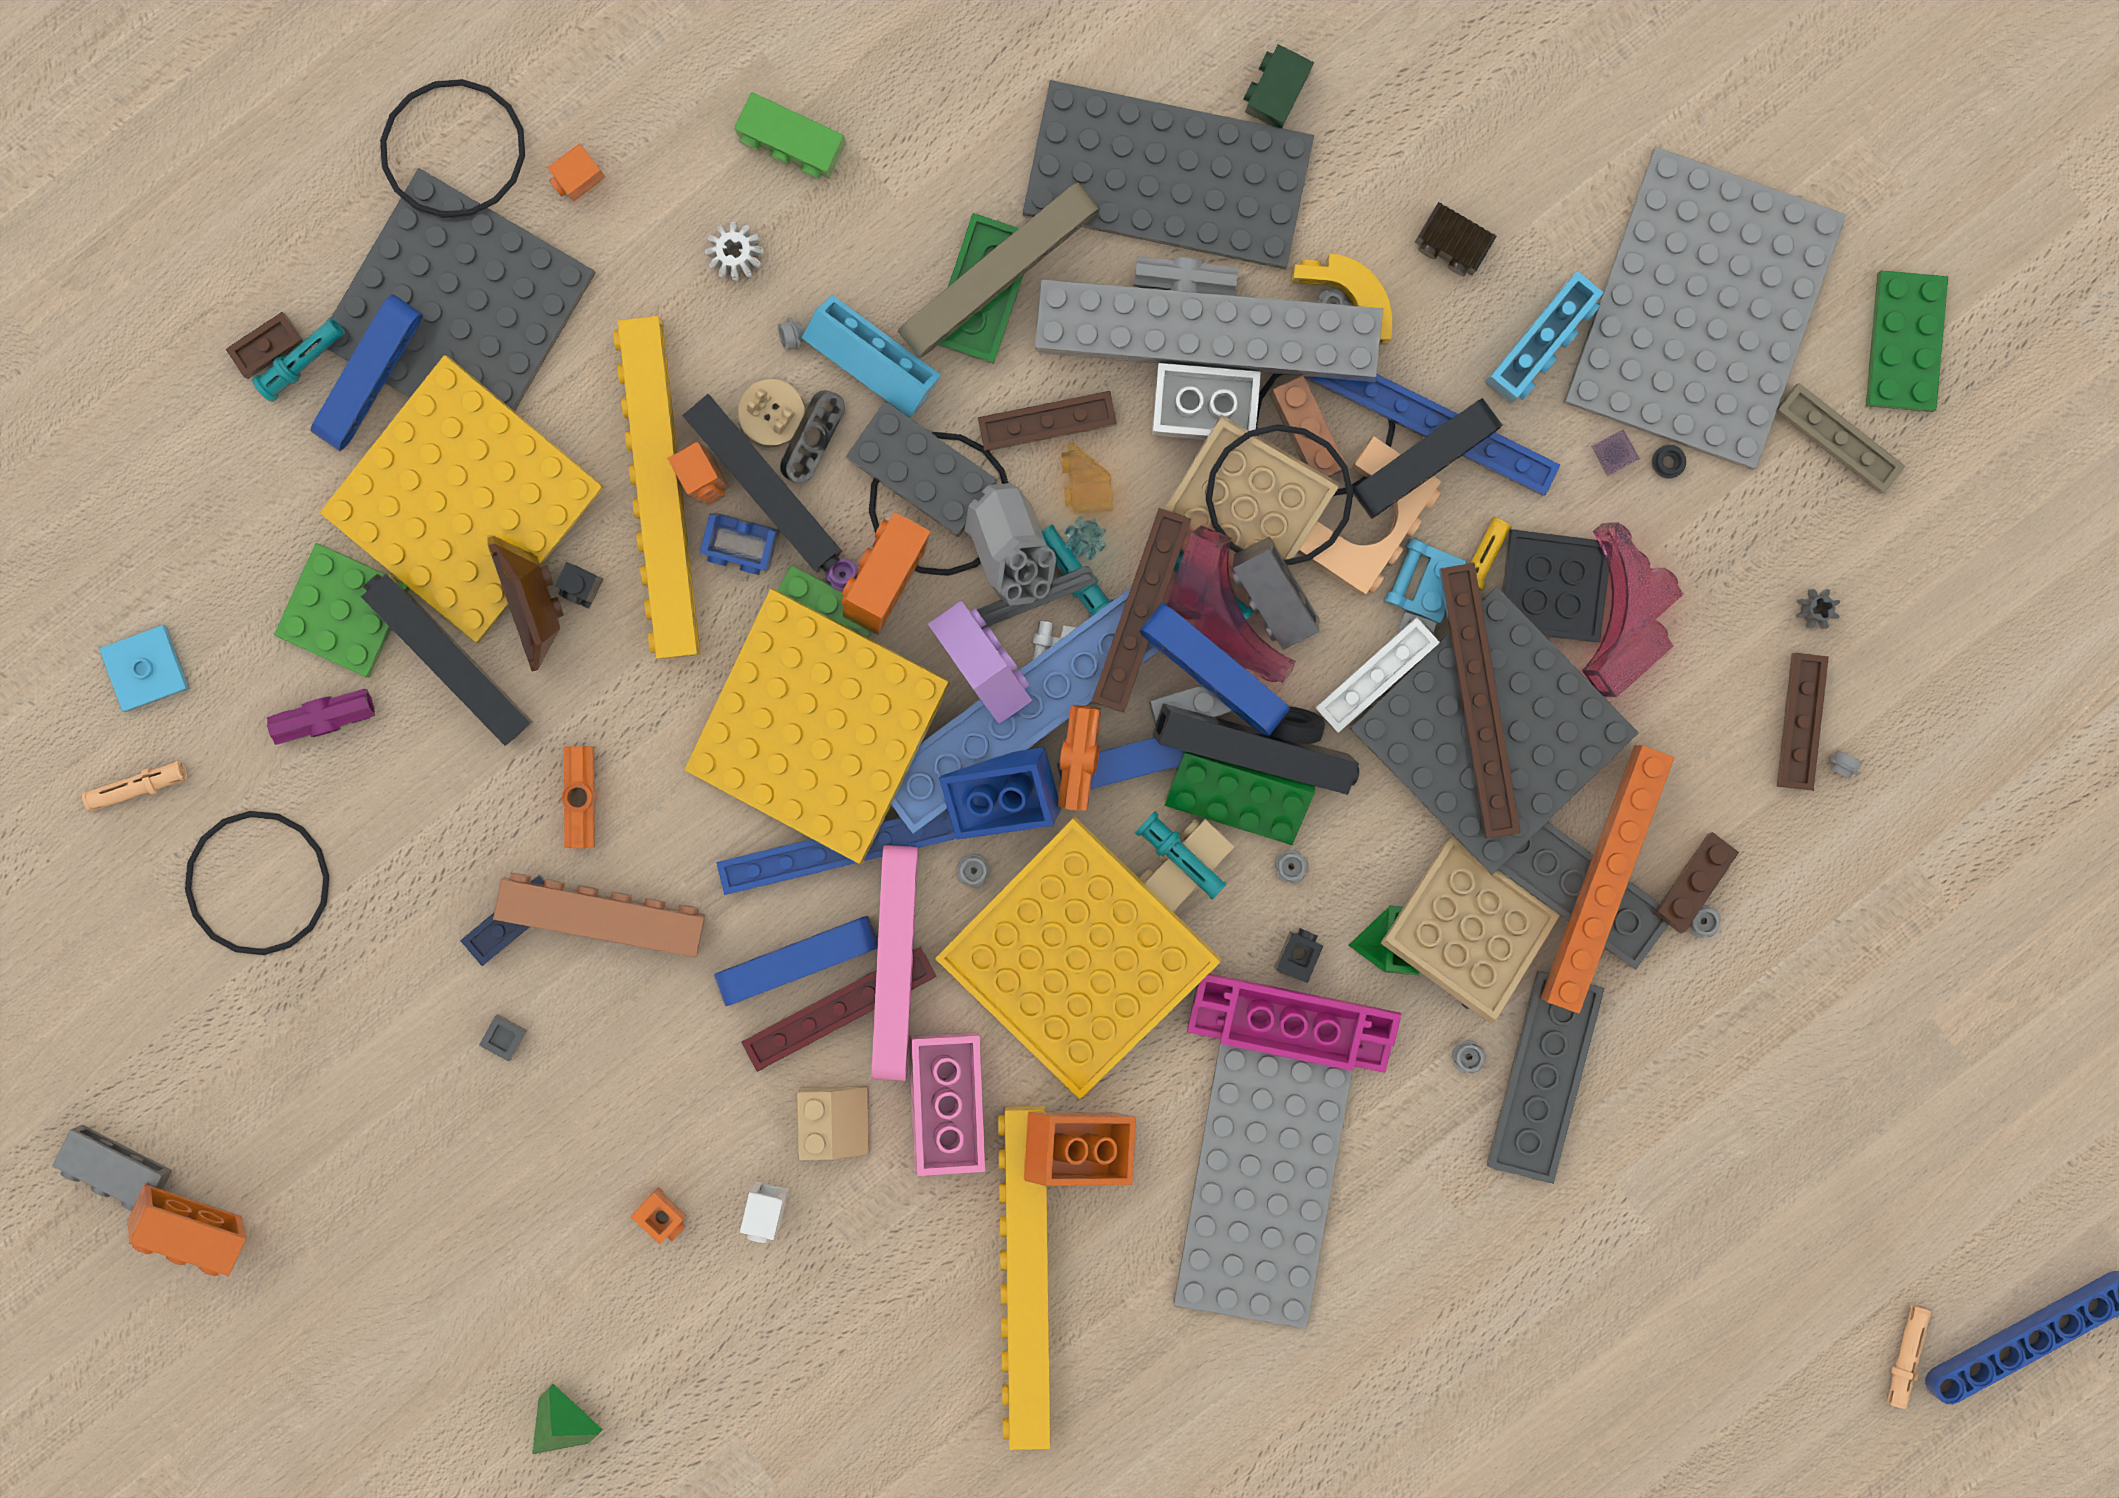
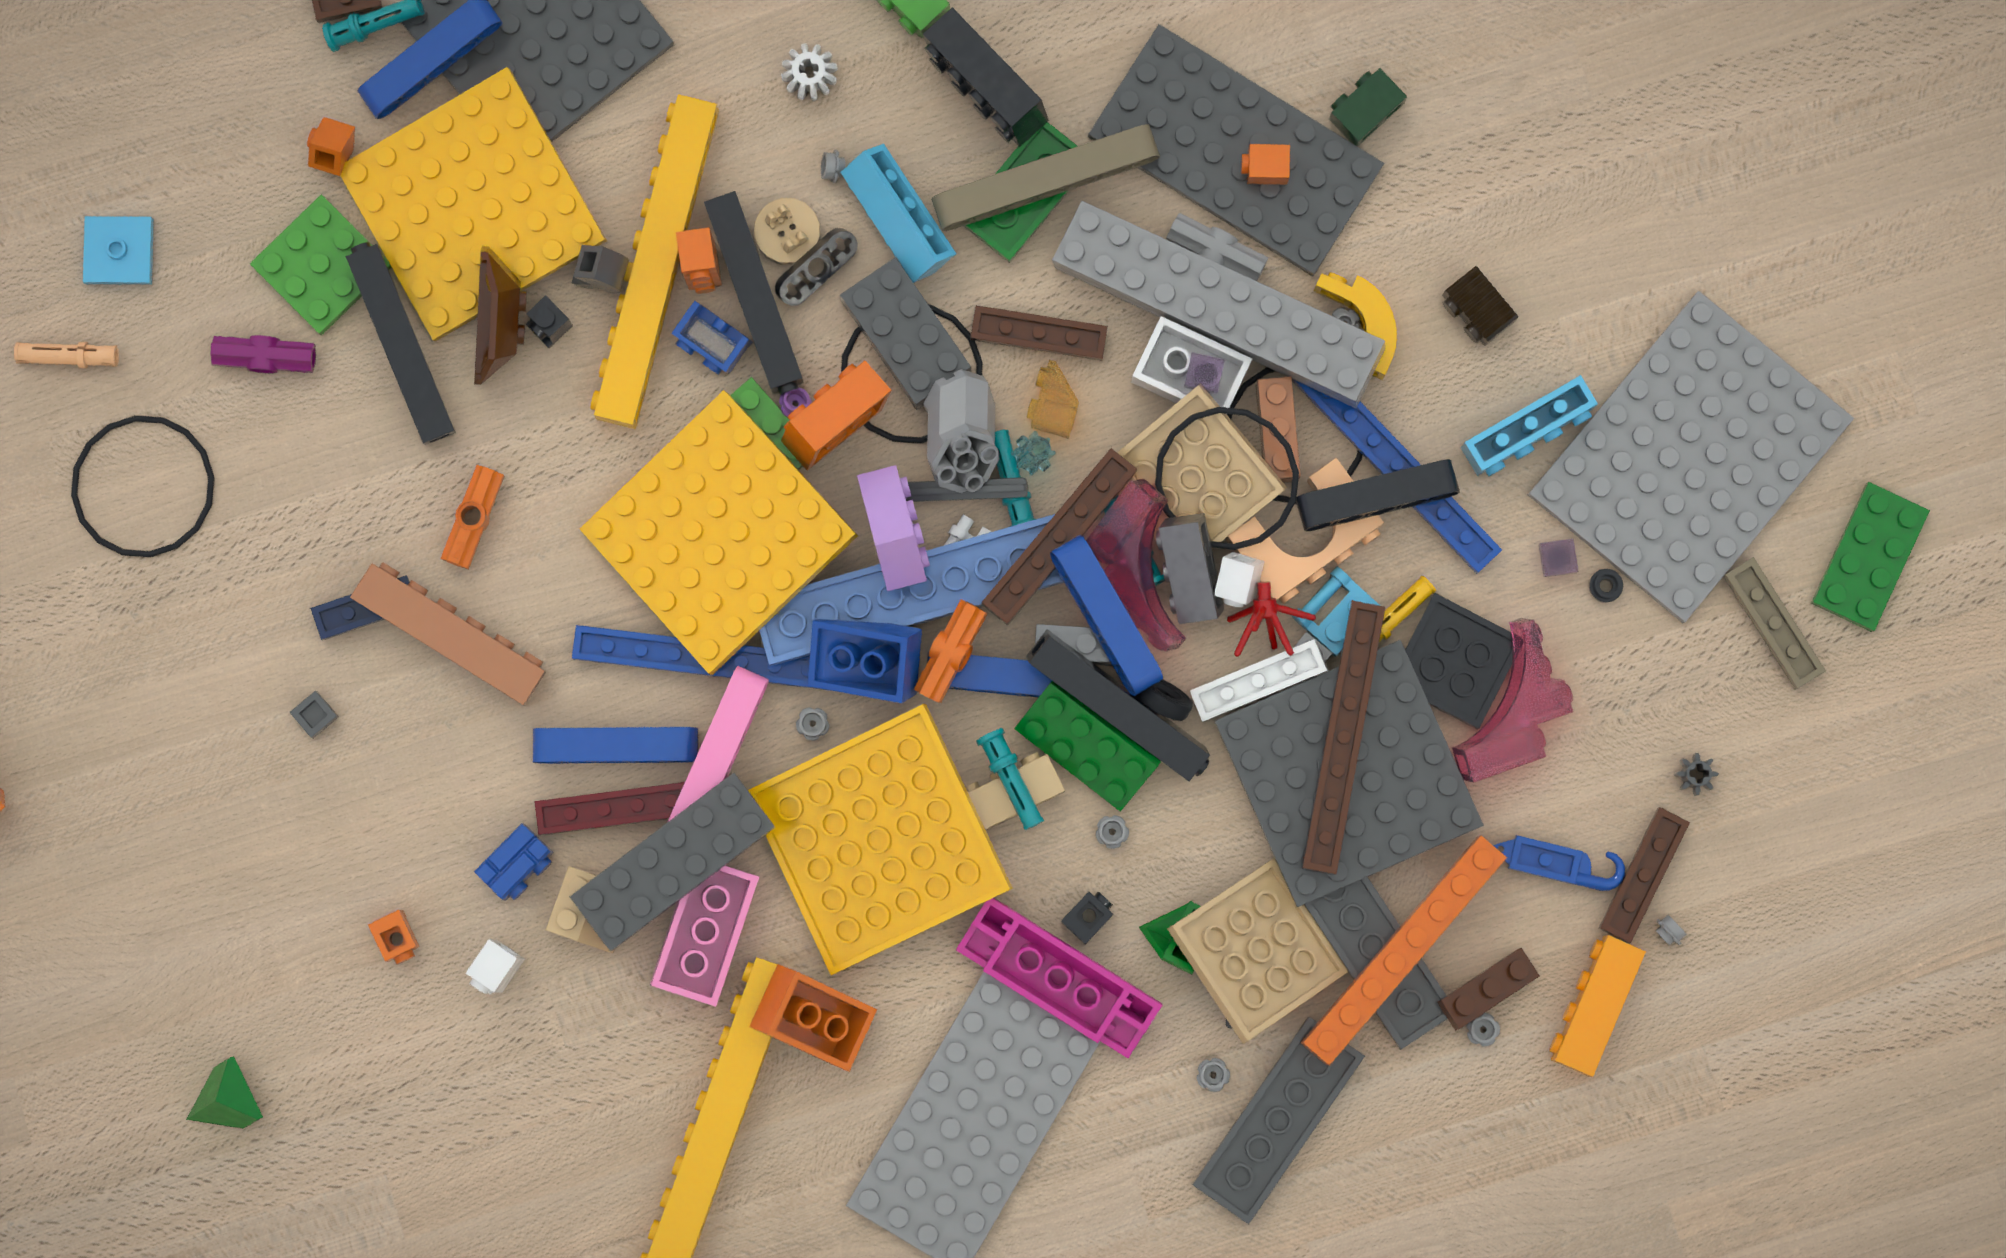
camera: 20 degrees right, 5 degrees down
(306, 493) = (330, 146): none -> orange brick
(608, 516) = (600, 269): none -> dark grey brick
(745, 1105) = (515, 862): none -> blue brick
(893, 1054) = (672, 862): none -> dark grey plate
(905, 194) = (985, 77): none -> black brick
(1204, 178) = (1266, 164): none -> orange brick
(1220, 402) = (1204, 371): none -> clear purple plate
(1325, 587) = (1238, 579): none -> white brick
(1360, 606) = (1266, 608): none -> red plant
(1718, 740) = (1558, 863): none -> blue plate
(1802, 860) = (1597, 1005): none -> light orange brick

